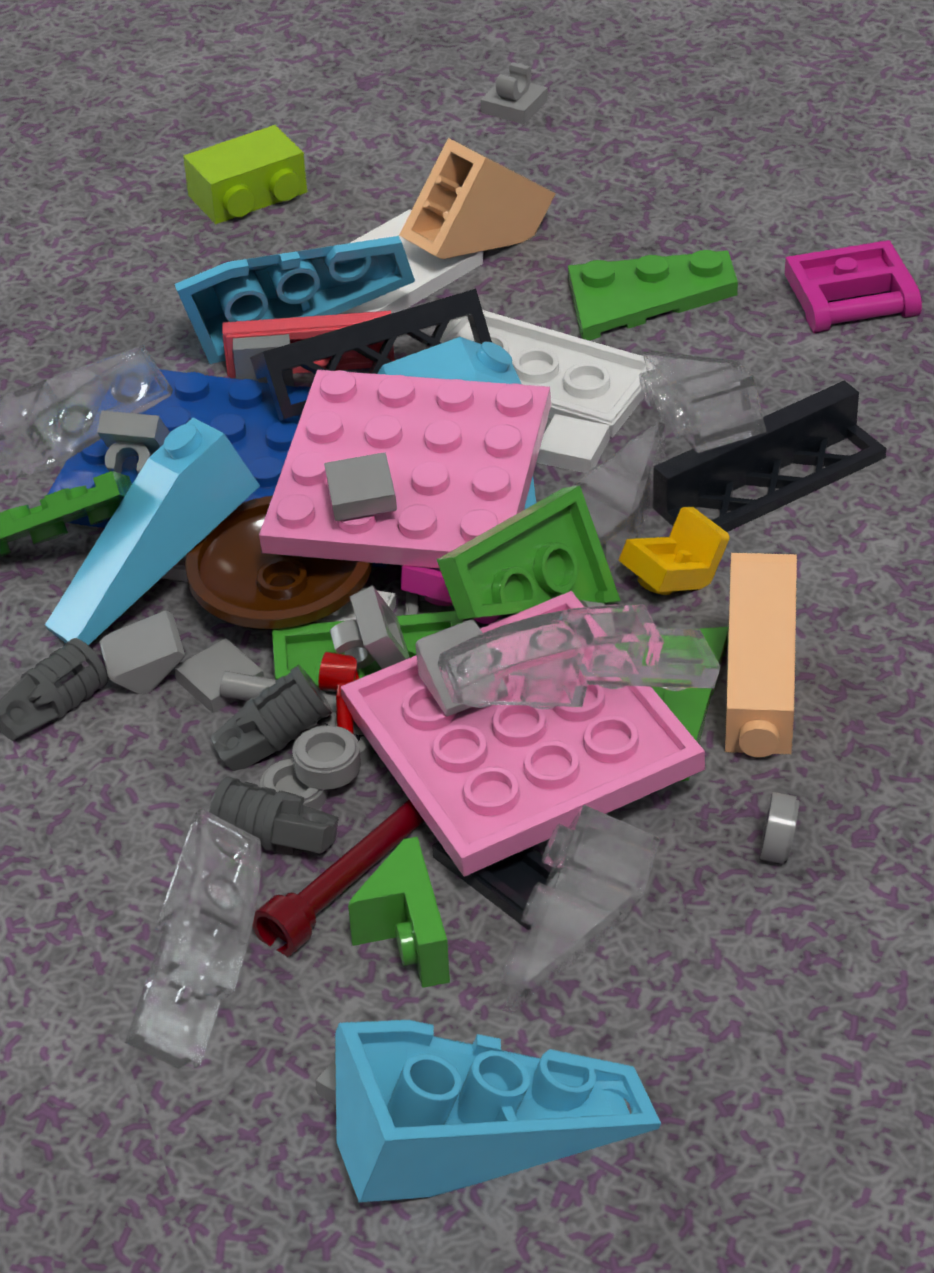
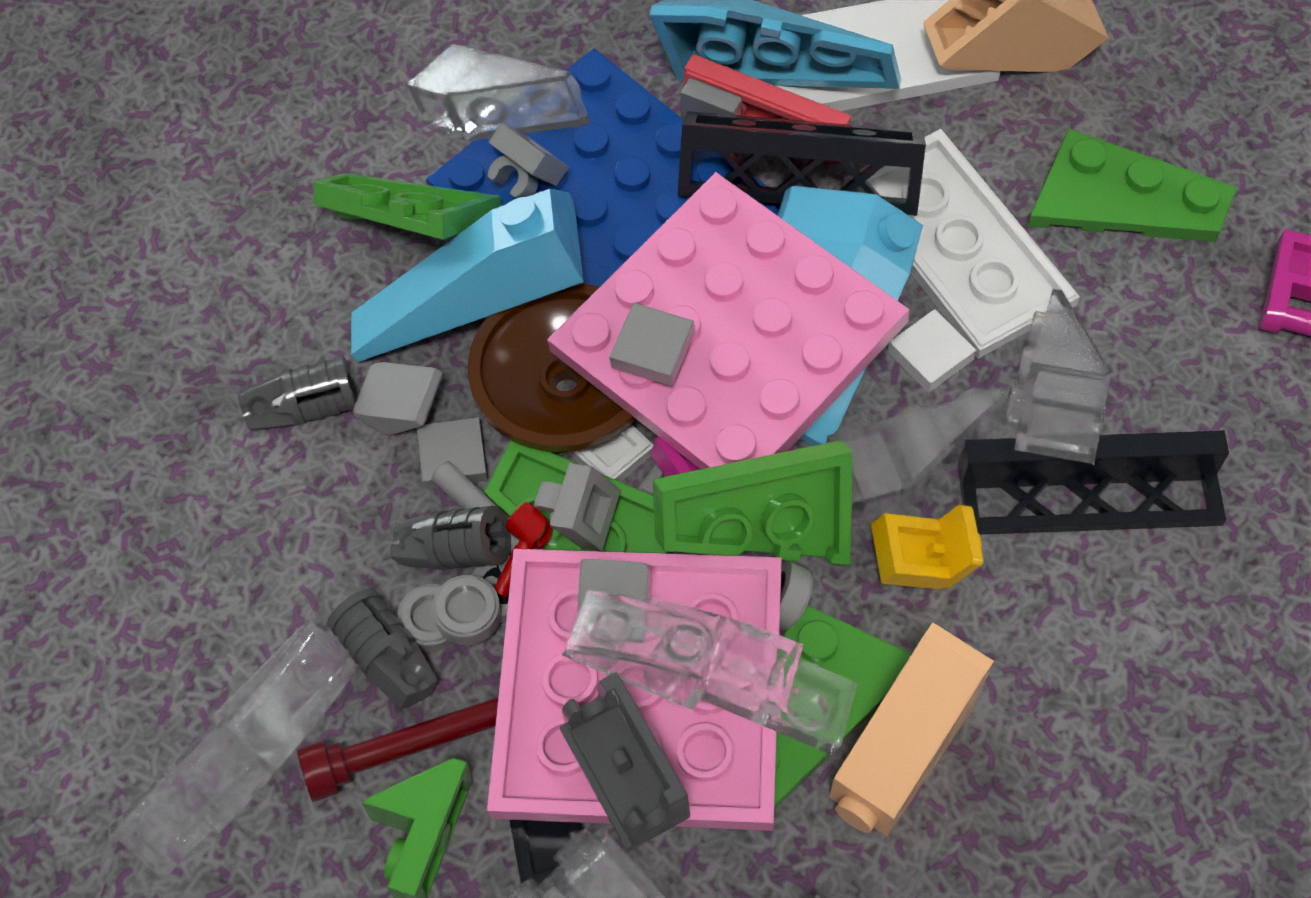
camera: 30 degrees right, 20 degrees up
(557, 752) = (624, 764): none -> dark grey hinge

